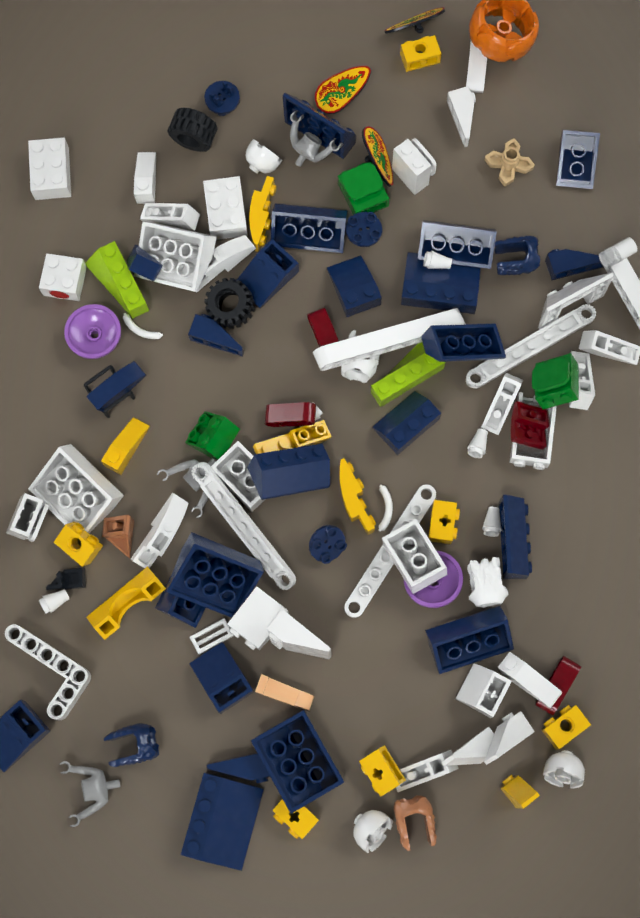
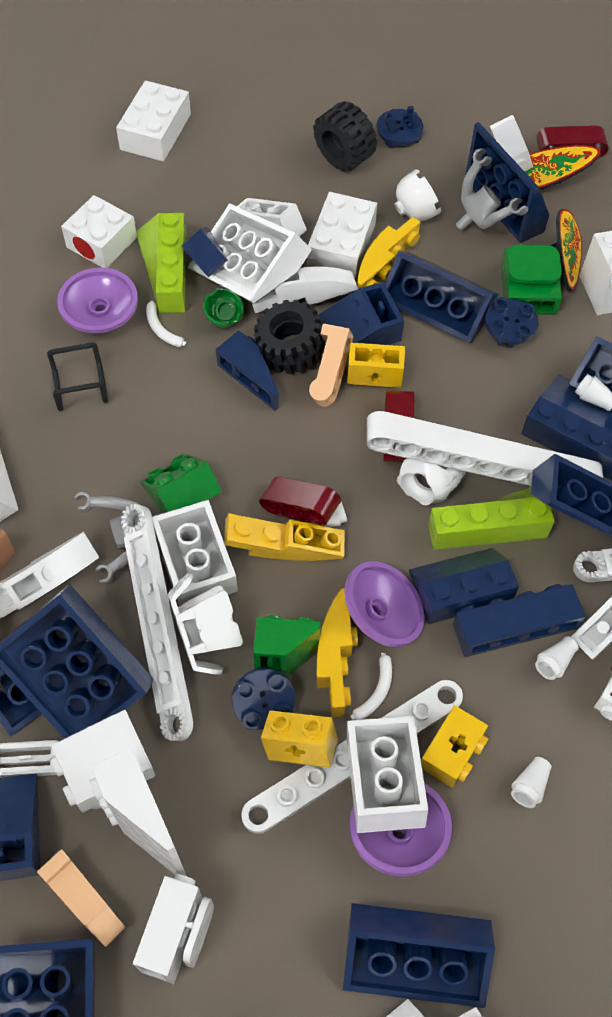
camera: 20 degrees right, 15 degrees down
(116, 386) = (108, 369): dark blue slope -> none
(124, 446) = (56, 450): yellow slope -> none
(145, 177) = (259, 172): white slope -> none
(176, 300) = (223, 308): none -> green hair
(266, 312) = (332, 366): none -> light nougat leg
(274, 514) = (205, 623): none -> white piece
(290, 471) = (259, 569): dark blue slope -> none
(293, 299) = (376, 365): none -> yellow brick
(309, 88) = (510, 138): none -> white slope
(323, 509) = (285, 642): none -> green slope
(342, 685) = (174, 929): none -> white brick
(347, 58) = (573, 135): none -> dark red beam
(354, 286) = (468, 387): dark blue slope -> none
(358, 557) = (299, 738): none -> yellow brick
(369, 457) = (384, 604): none -> medium lavender dish
(447, 431) = (518, 619): none -> dark blue brick
(486, 583) = (484, 872): white piece -> none
(514, 538) = (557, 822): dark blue slope -> none

